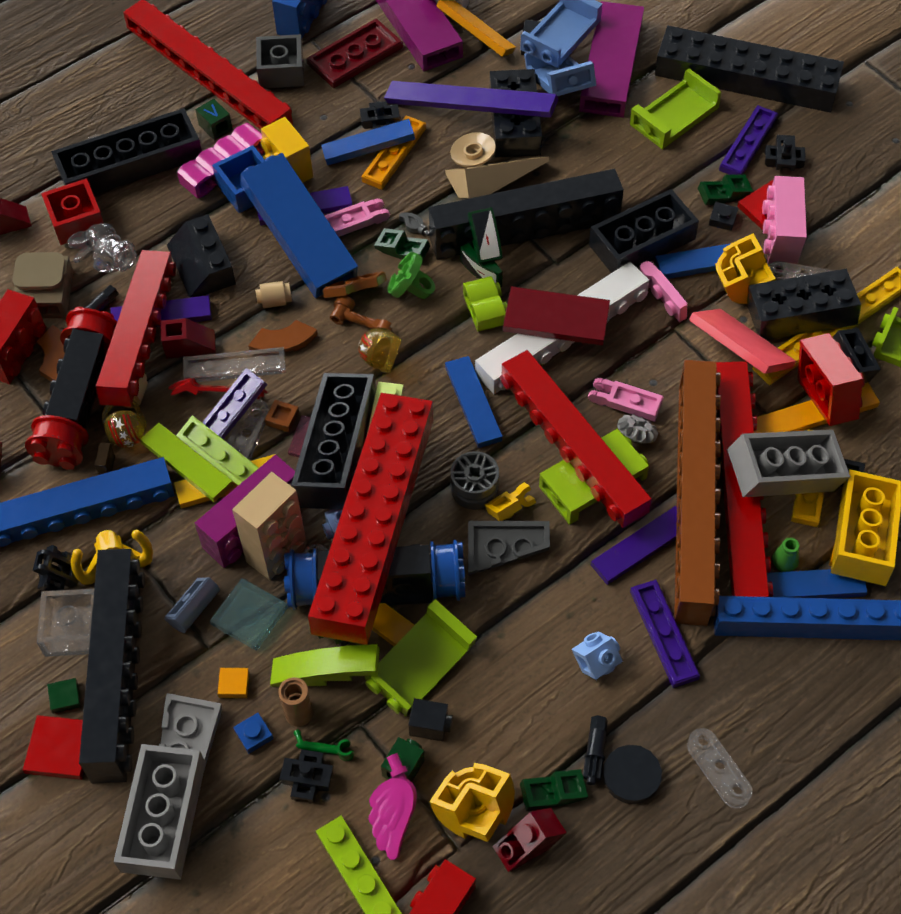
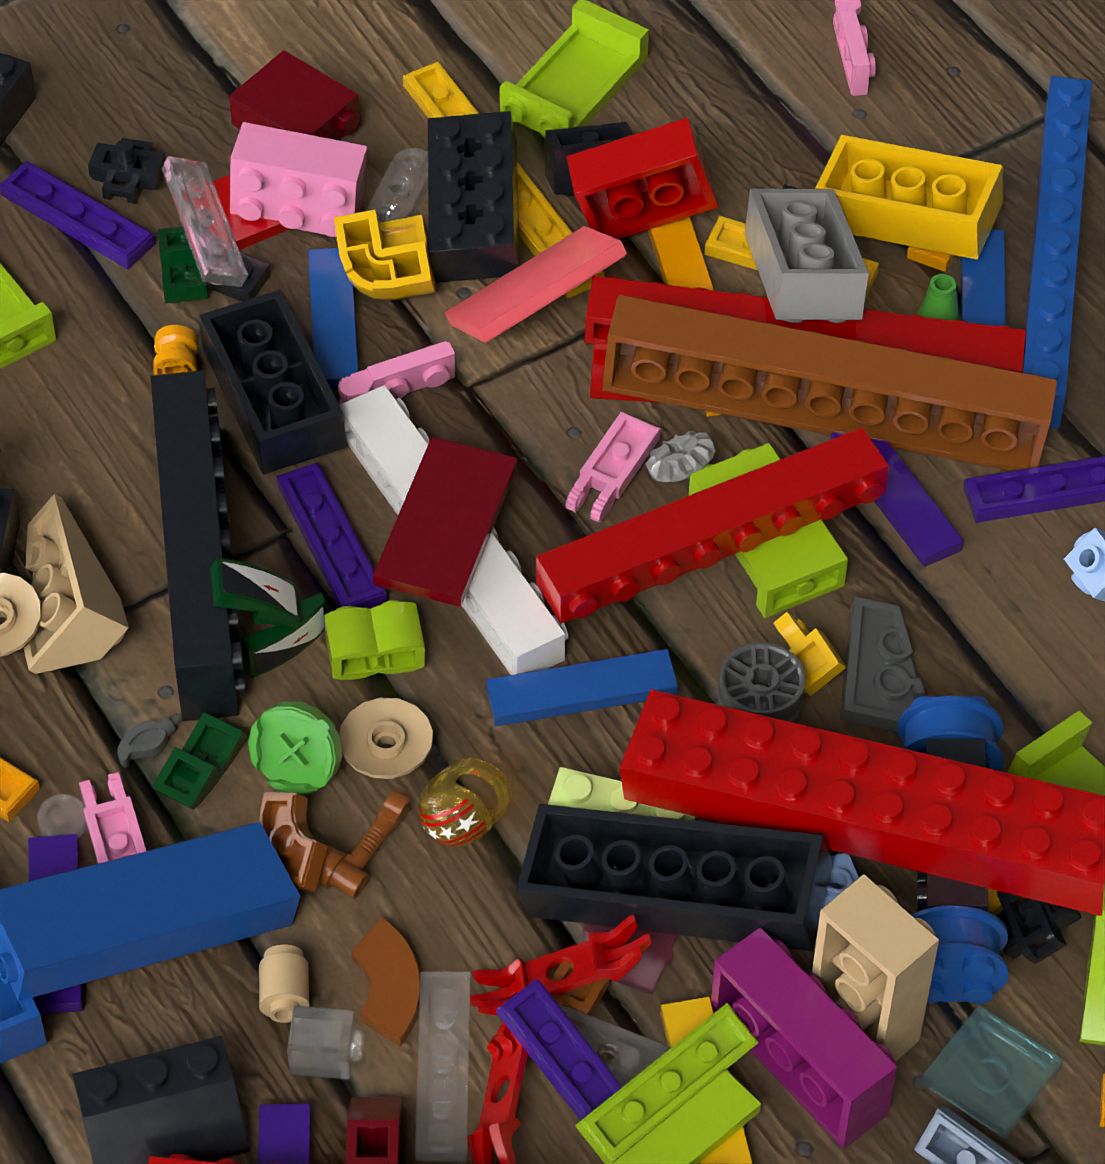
camera: 85 degrees left, 5 degrees down
(242, 313) = (323, 1042): none -> clear brick
(288, 394) = (593, 960): none -> red piece
(361, 195) = (61, 816): none -> clear tile
(422, 308) = (382, 723): none -> tan dish
(561, 274) = (330, 537): none -> dark purple tile
(650, 190) = (175, 350): none -> light orange wheel
(742, 186) = (204, 222): none -> clear plate
(850, 218) = (295, 99): none -> dark red brick

